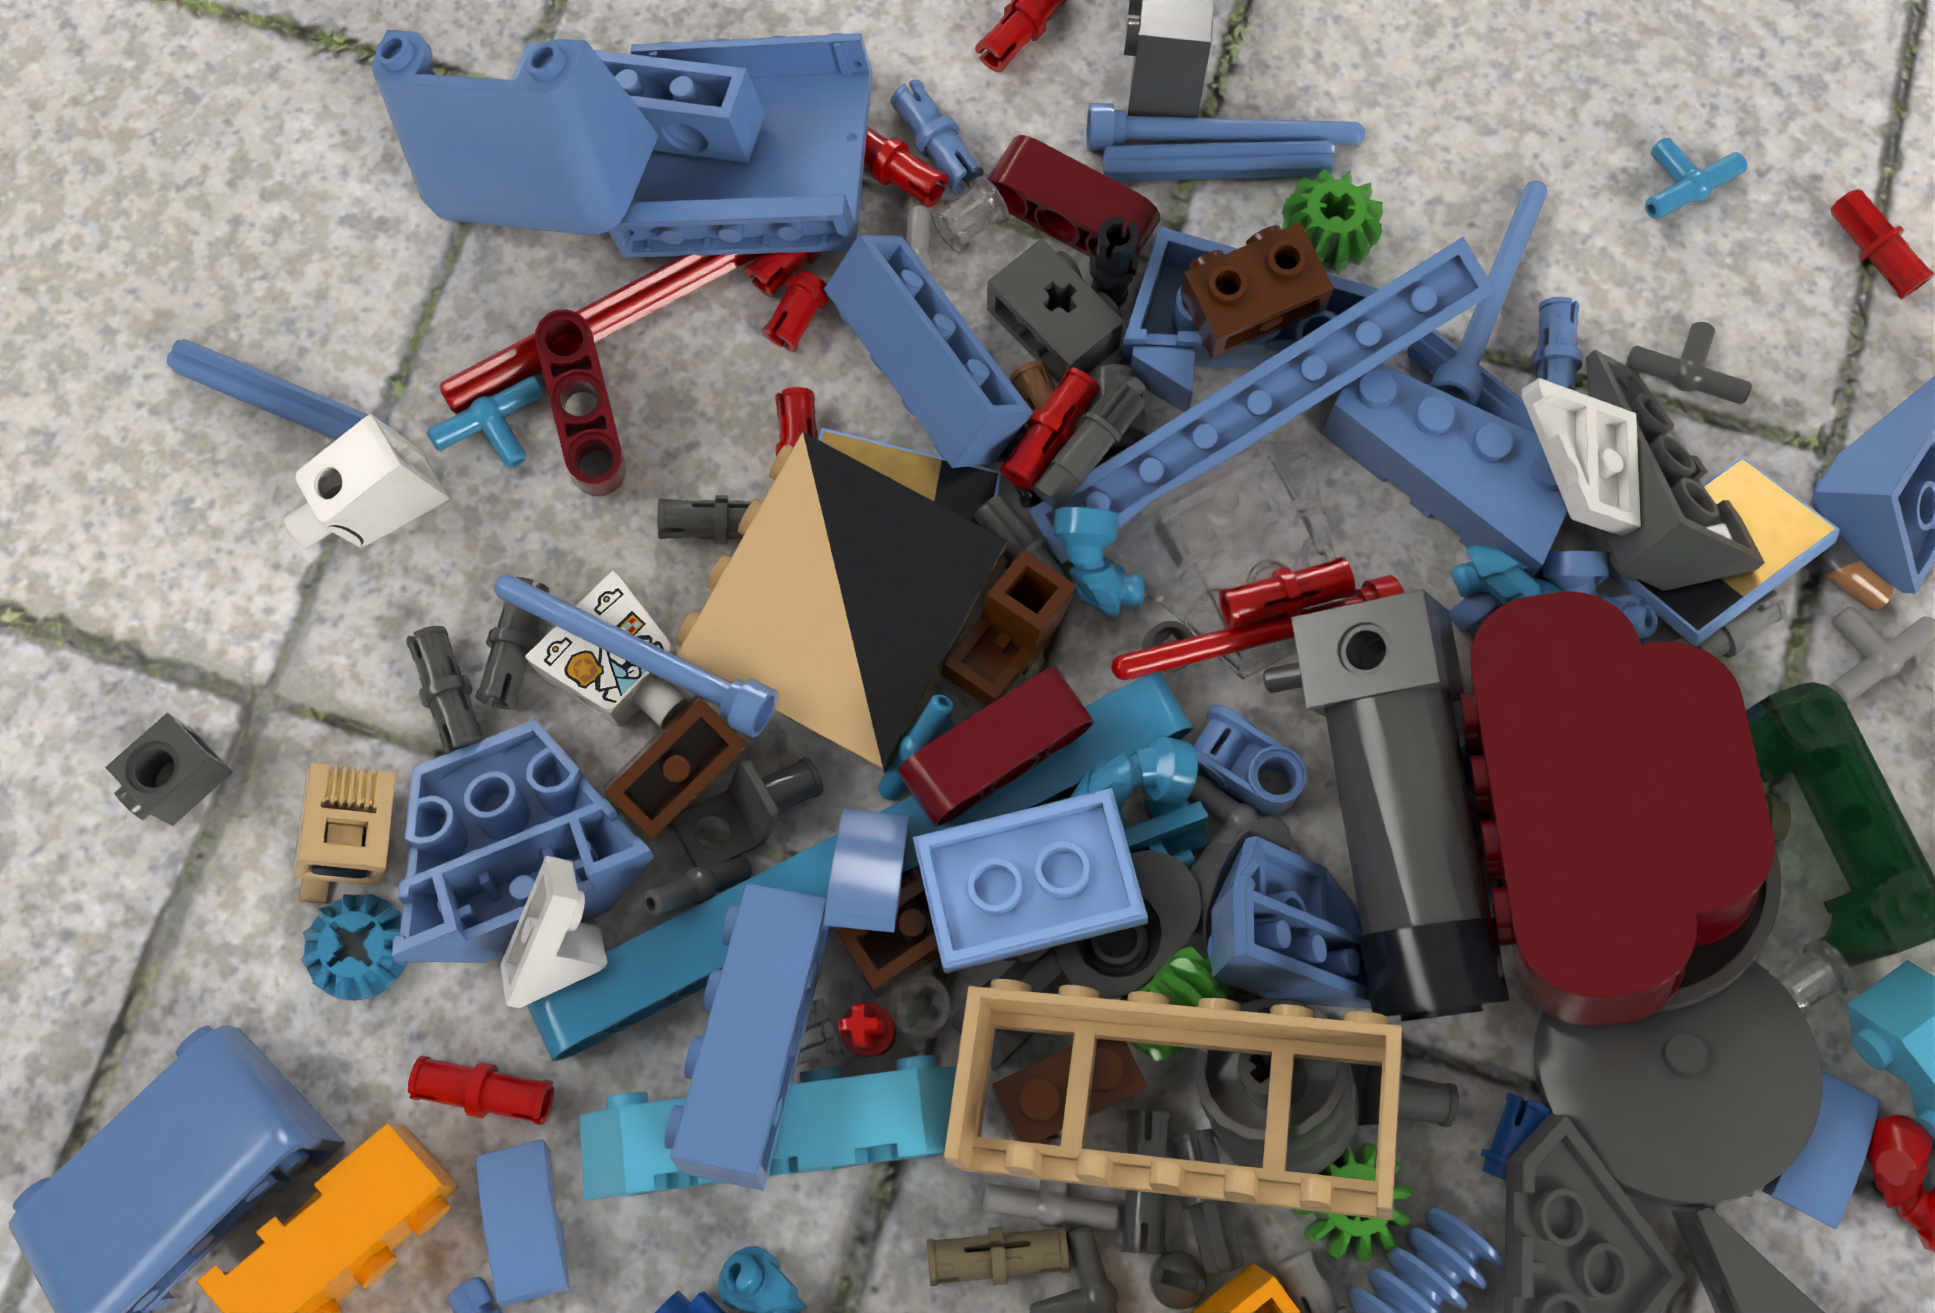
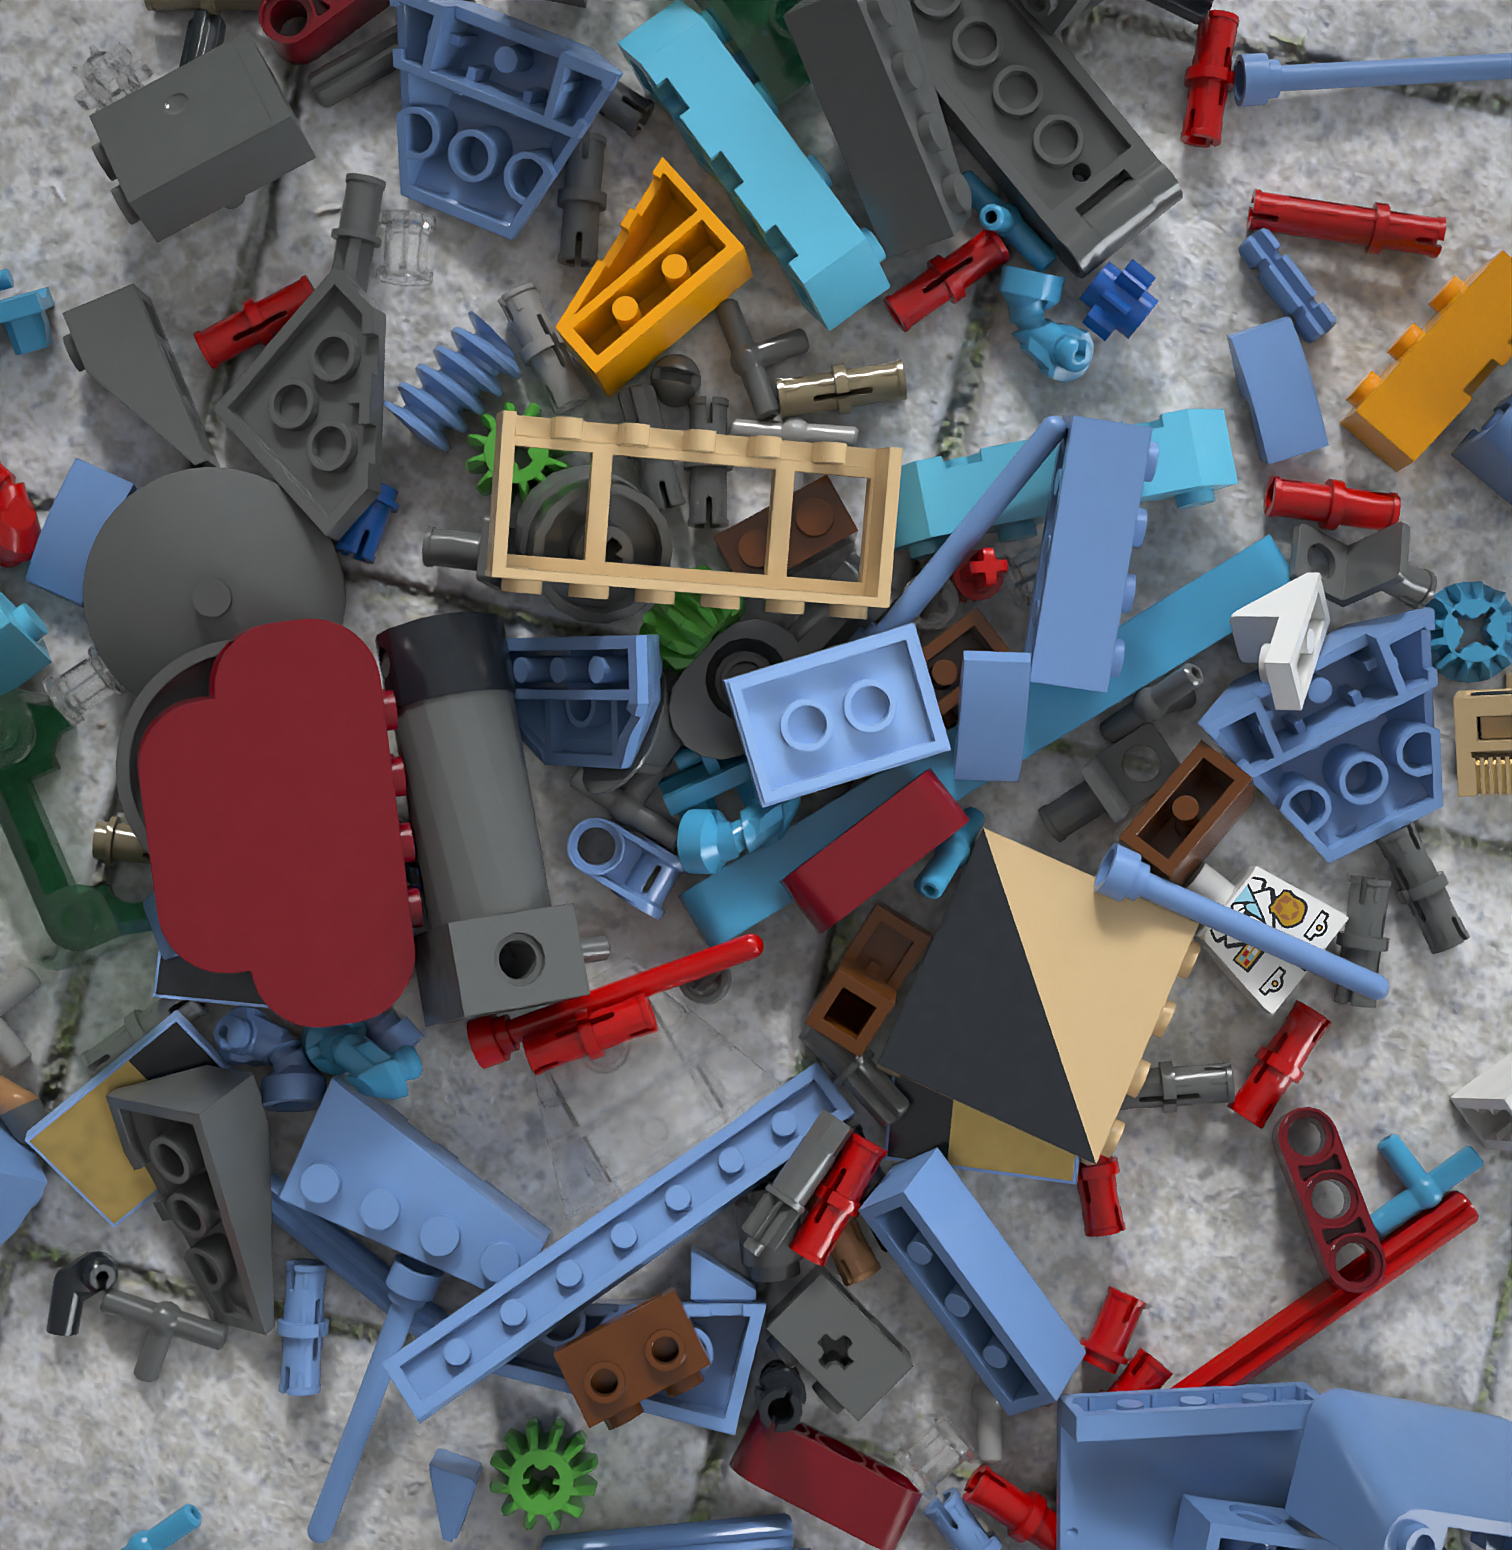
camera: 175 degrees left, 15 degrees up
(458, 1018) = (1365, 566): none -> dark grey bracket
(609, 534) = (1279, 1064): none -> red pin
(876, 1068) = (971, 528): none -> medium blue piece
(1097, 580) = (778, 1042): dark azure arm -> none
(1417, 214) = (453, 1485): none -> medium blue slope
(1589, 453) = (284, 1193): white wing -> none
(1775, 409) = (75, 1284): none -> black arm

